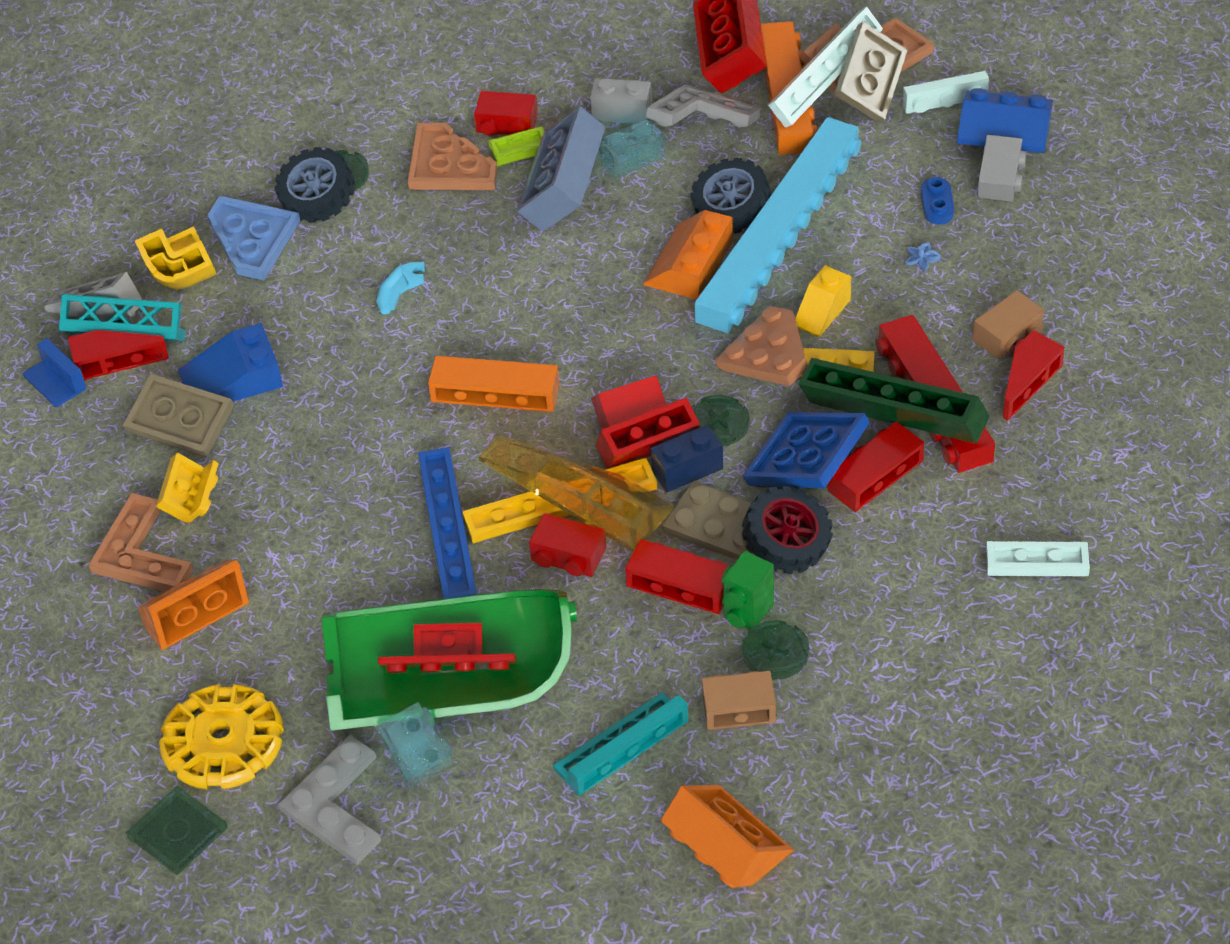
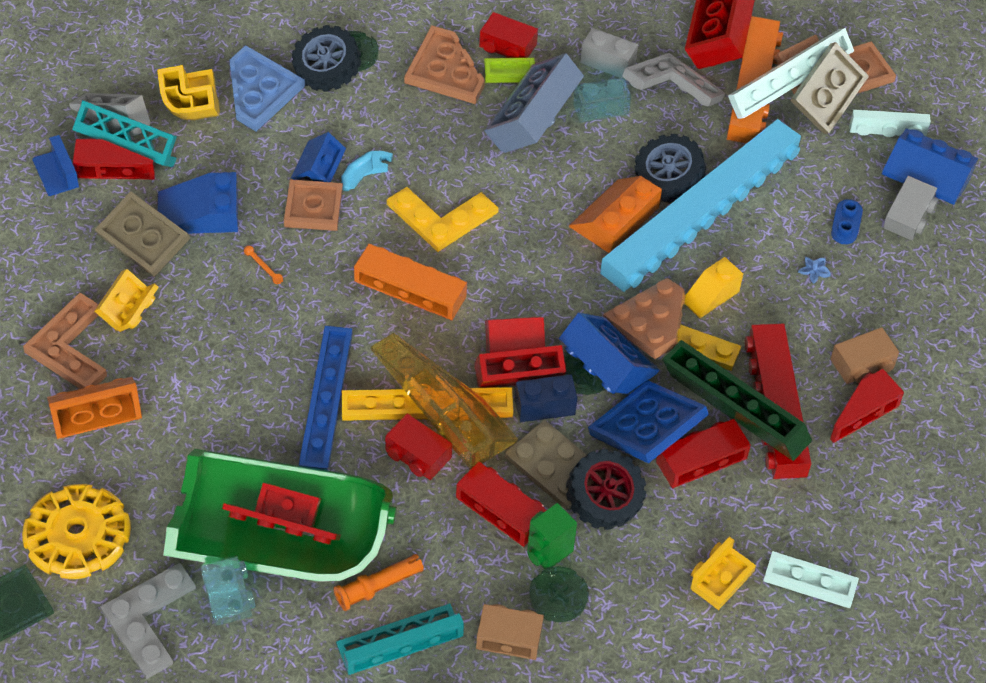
camera: 10 degrees right, 5 degrees up
(345, 421) = (276, 278): none -> orange hinge
(346, 289) = (319, 159): none -> blue panel
(357, 336) = (313, 205): none -> nougat plate
(500, 326) = (436, 230): none -> yellow plate
(565, 700) = (366, 586): none -> orange pin
(736, 395) = (607, 353): none -> blue slope
(941, 579) = (721, 574): none -> yellow bracket

